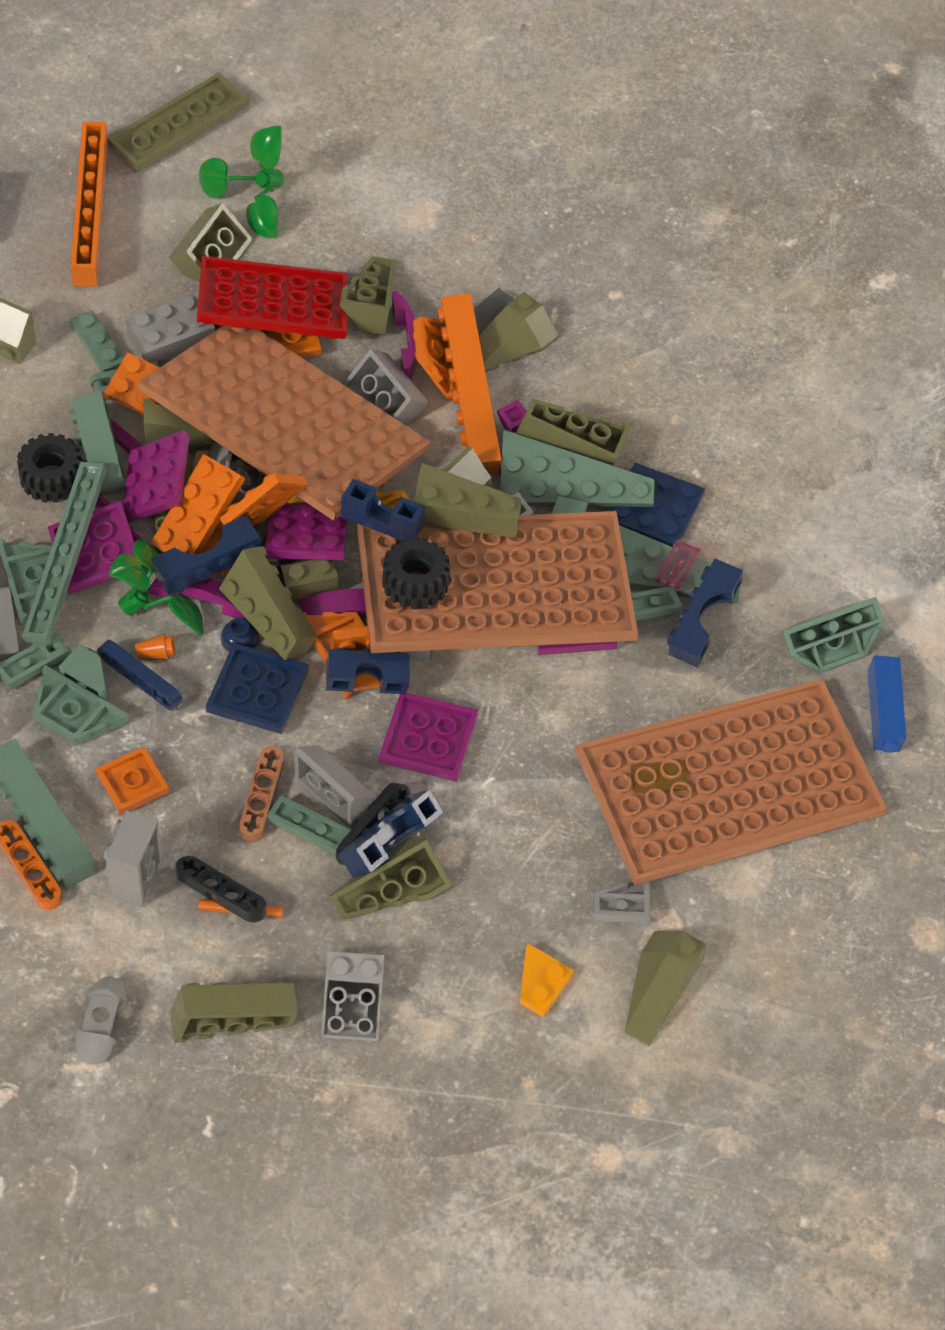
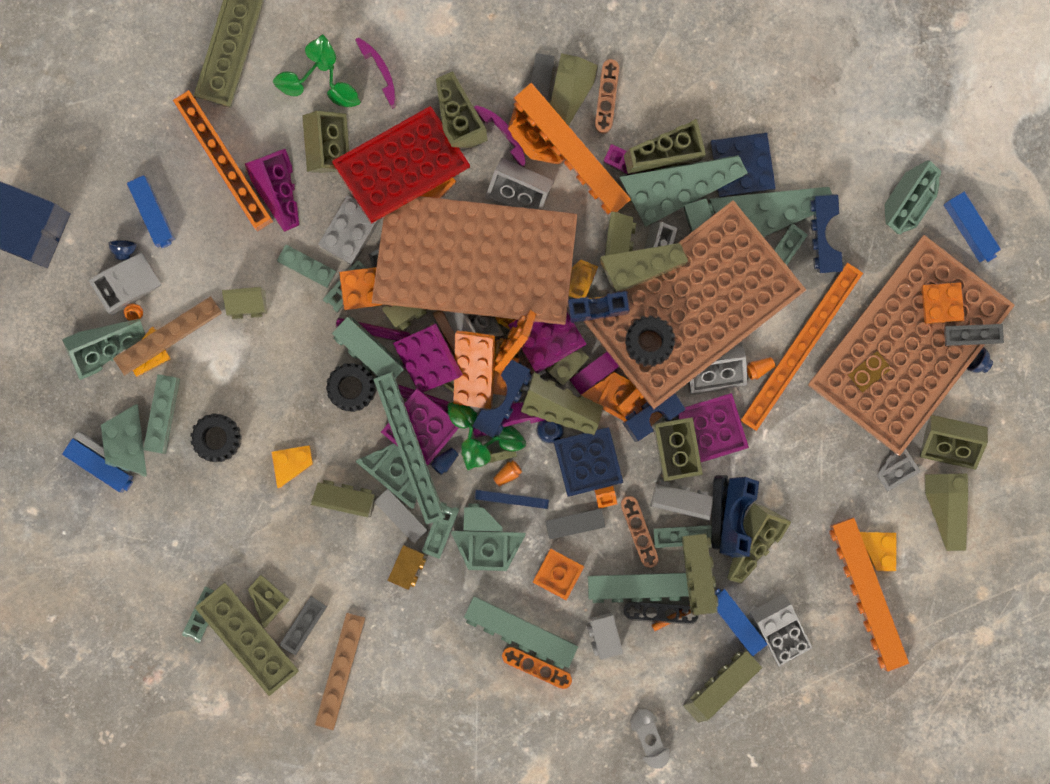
camera: 30 degrees left, 30 degrees up
(95, 596) = (444, 461): none -> dark blue cone
(127, 250) = (273, 182): none -> magenta wedge
(153, 619) = (502, 455): none -> olive wing
(193, 743) = (575, 524): none -> dark grey tile
(228, 851) = (637, 587): none -> sand green brick
(249, 733) = (605, 497): none -> orange plate
(295, 857) = (699, 574): none -> olive wedge
(306, 952) = (739, 623): none -> blue brick
(316, 235) = (367, 52): none -> magenta slope
(368, 725) = (677, 449): none -> olive slope
(479, 679) = (724, 373): none -> light grey slope
(491, 1019) = (869, 595): none -> orange brick
(530, 706) = (760, 367): none -> orange cone
(550, 368) = (607, 96): none -> nougat beam
(594, 713) = (801, 347): none -> orange plate
(670, 580) = (788, 208): clear pink tile -> none
(713, 912) = (954, 442): none -> olive slope
(797, 754) = (942, 303): none -> orange plate
(805, 845) = (981, 362): none -> dark blue piece
(813, 804) = (973, 335): none -> dark grey plate

